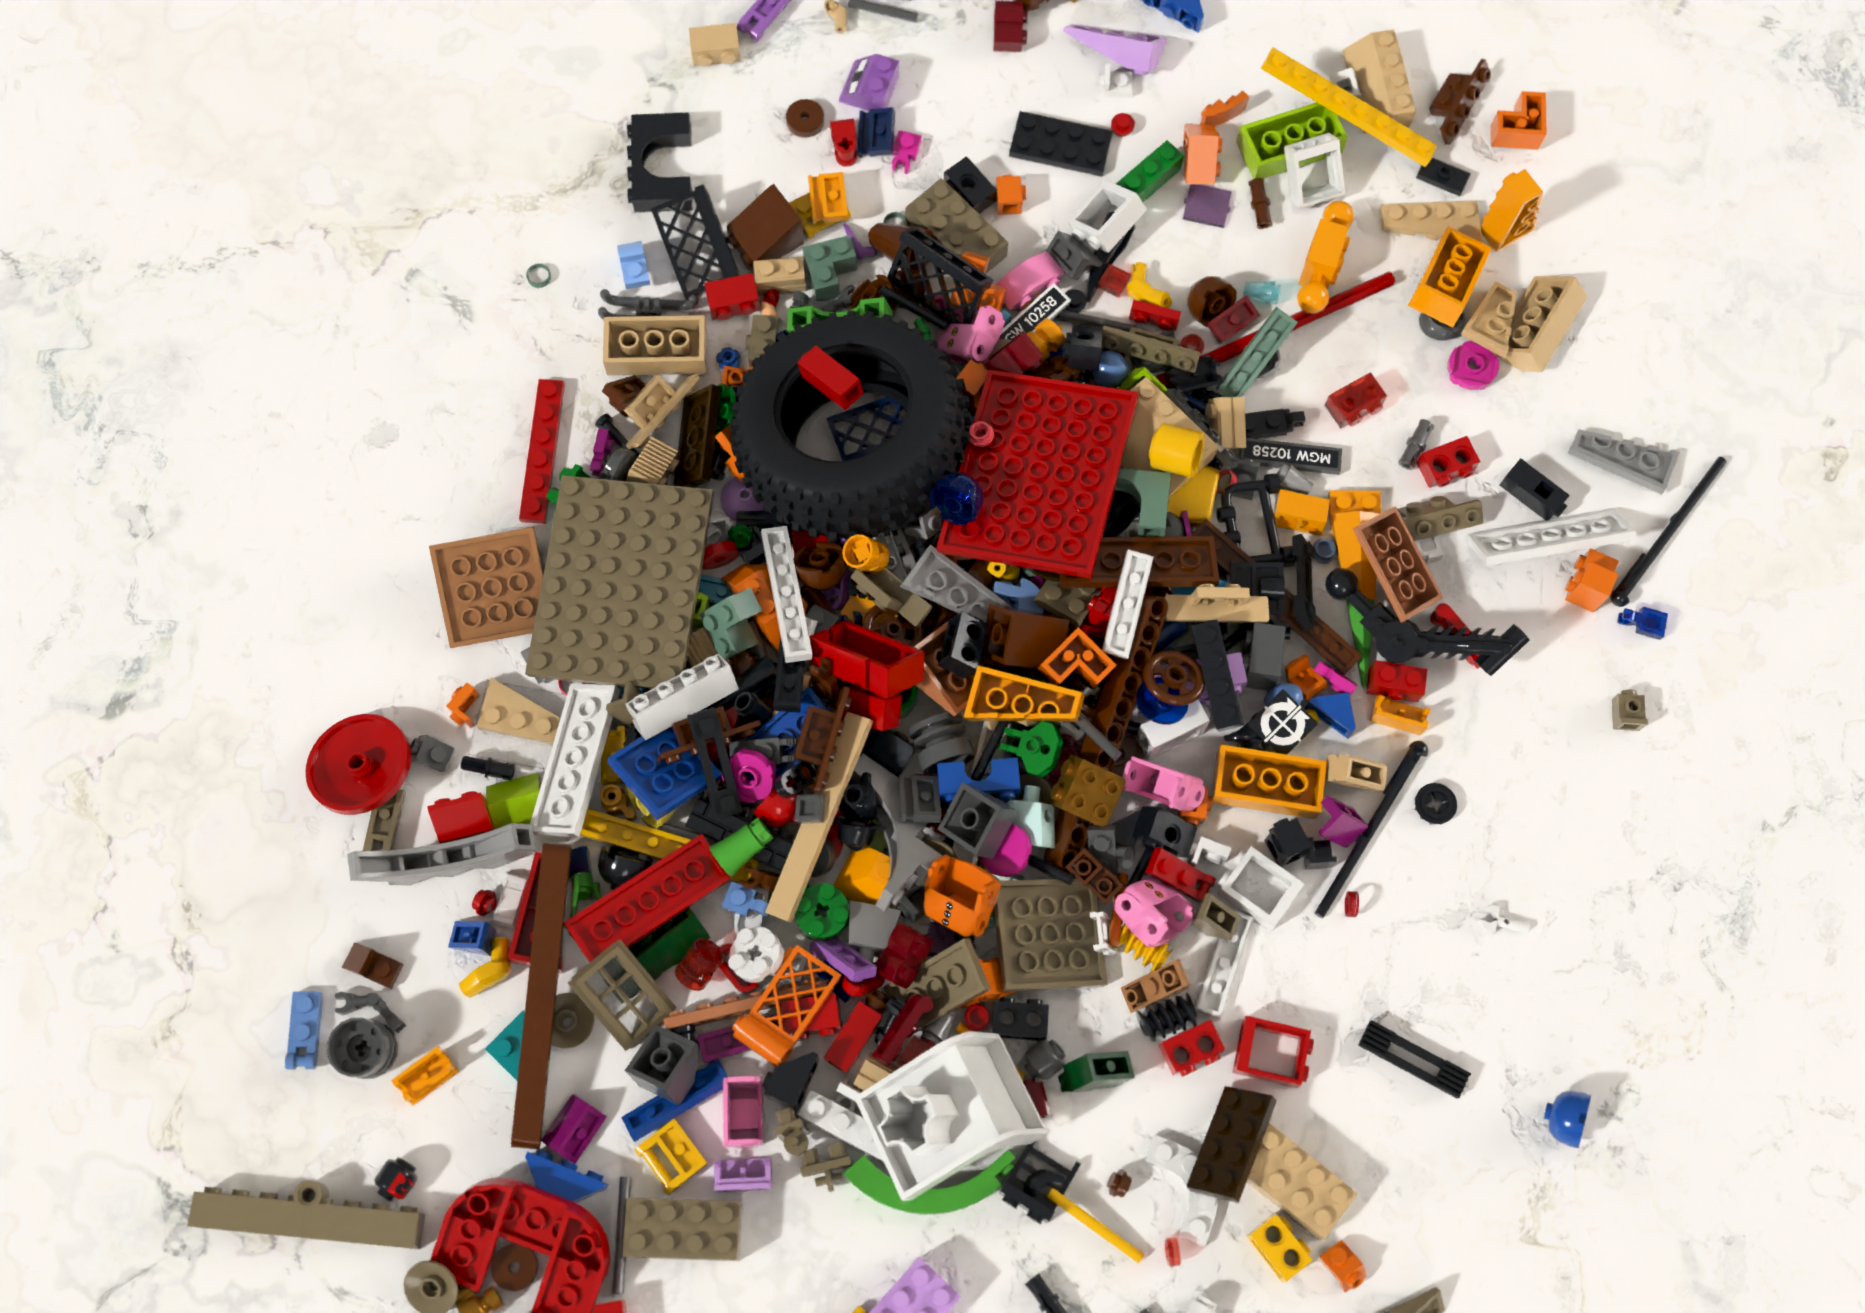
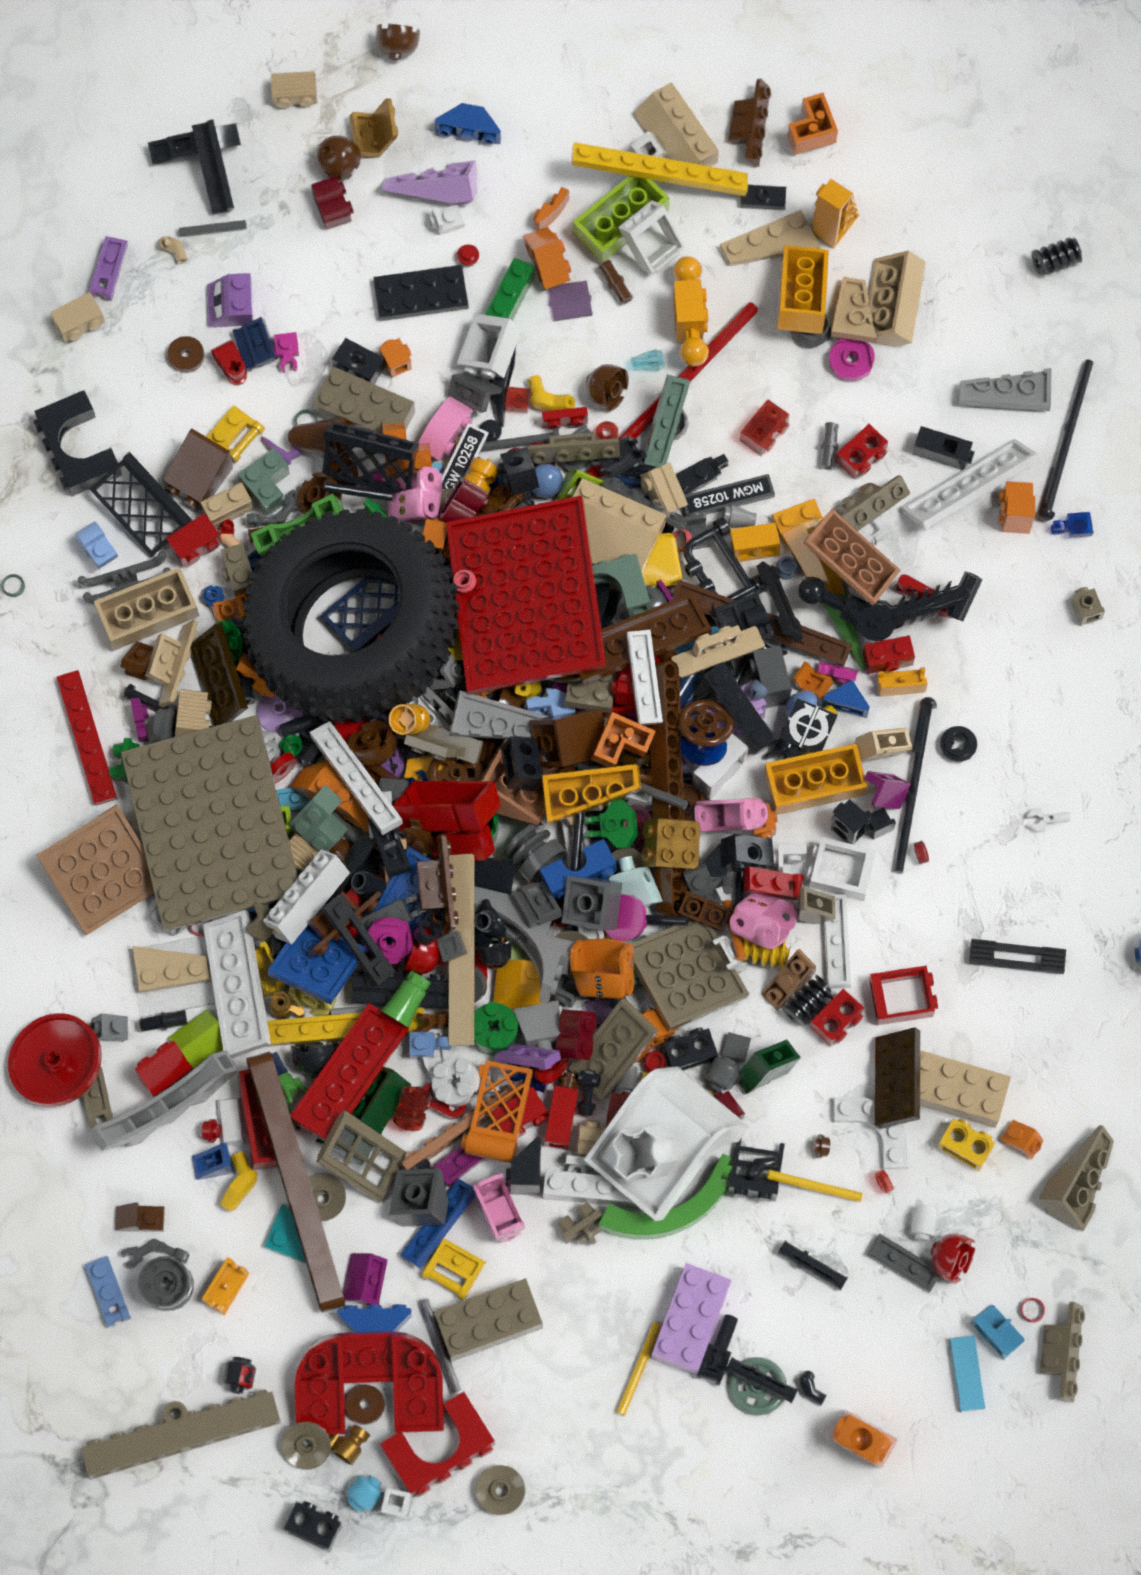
camera: 20 degrees left, 0 degrees up
(461, 701) = (116, 974): orange bracket -> none
(743, 1175) = (518, 1260): lavender hinge -> none
(792, 1131) = (544, 1208): dark tan hips -> none
(828, 197) = (240, 420): light orange plate -> none
(830, 377) = (322, 582): red brick -> none
(902, 1028) = (599, 1091): dark red plate -> none
(957, 498) = (469, 643): clear blue cylinder -> none
(1071, 1035) = (736, 1047): none -> dark grey tile
(1176, 450) = (633, 532): yellow piece -> none
(1233, 319) = (633, 395): dark red plate -> none
(1245, 664) = (760, 690): none -> sand blue hinge
(1727, 340) = (1056, 254): none -> black piece

